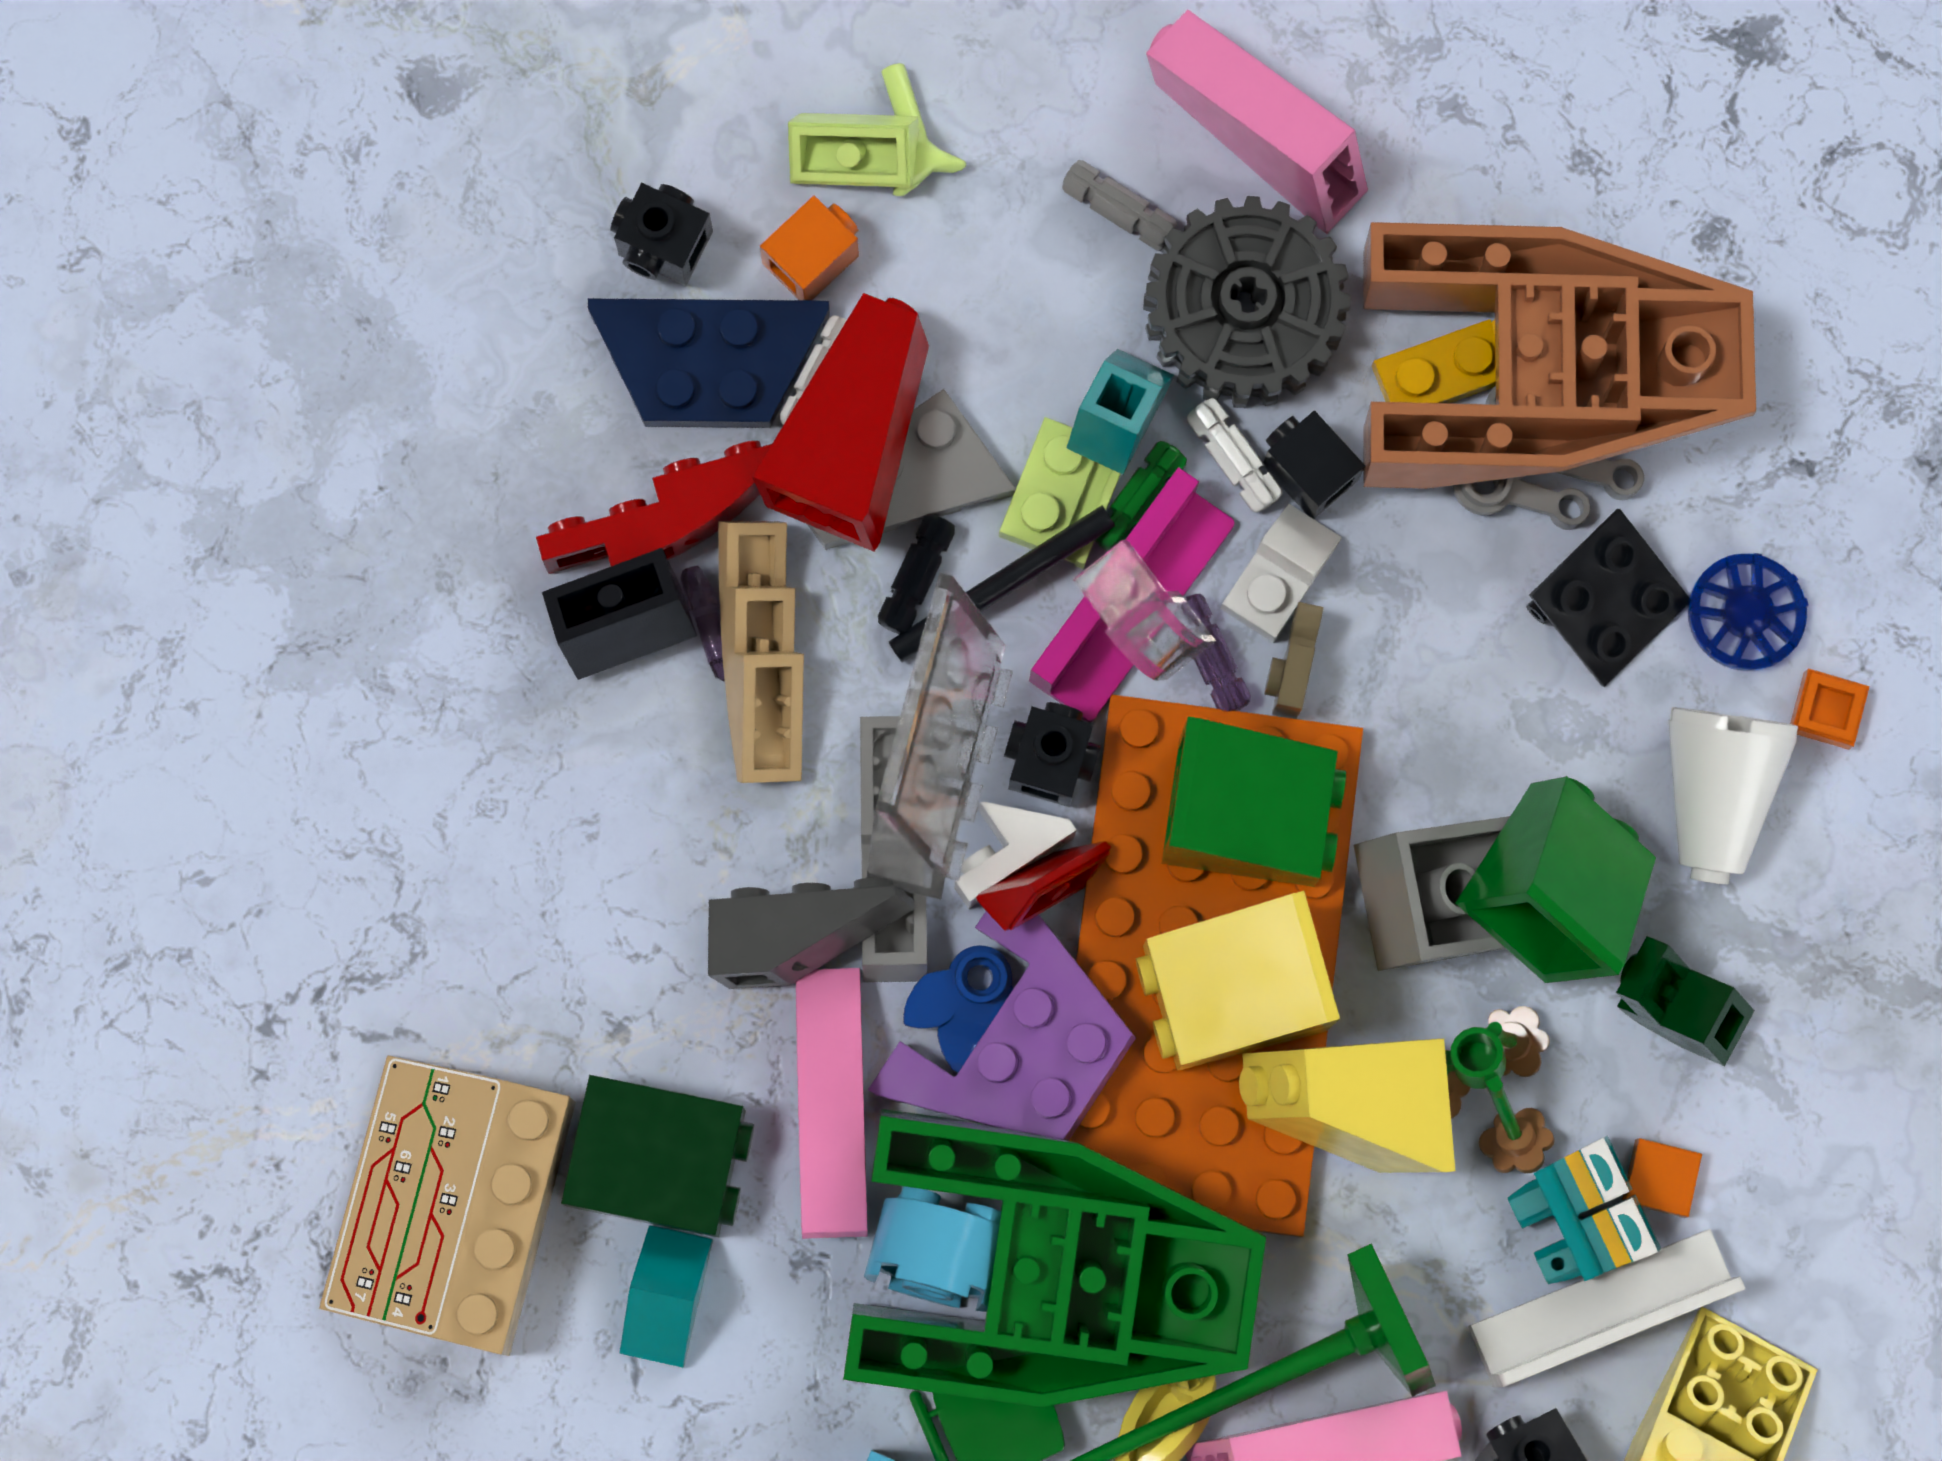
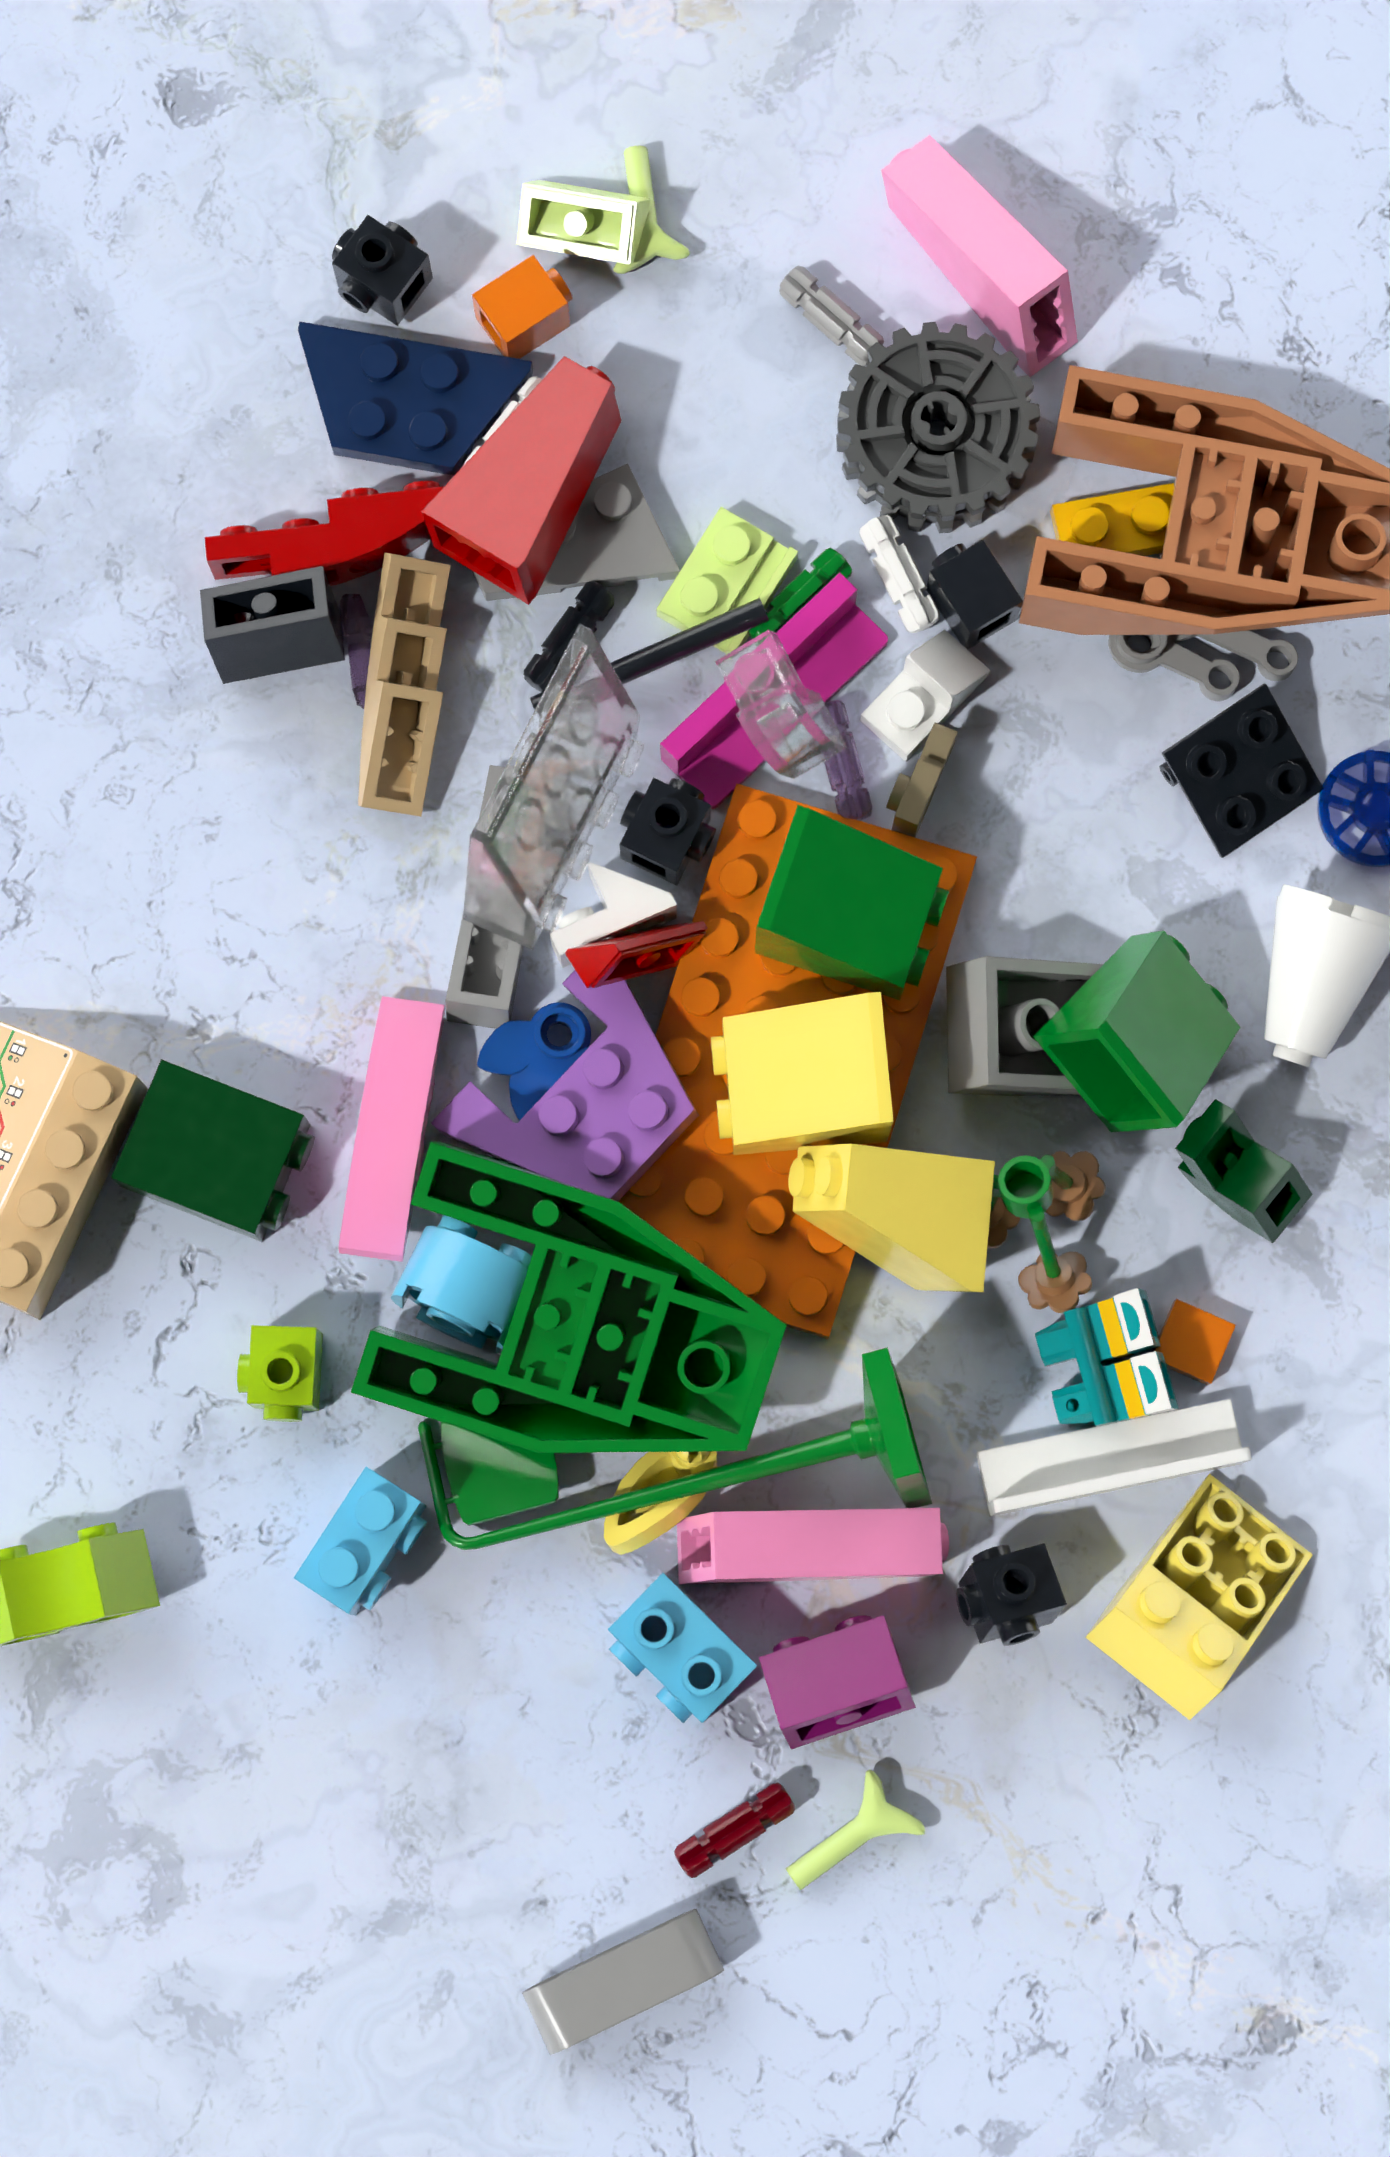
camera: 15 degrees right, 0 degrees up
(665, 1296) = (198, 1287): teal slope -> none
(765, 1367) = (282, 1371): none -> lime brick
(785, 936) = (378, 959): dark grey slope -> none
(1118, 410) = (791, 508): teal slope -> none

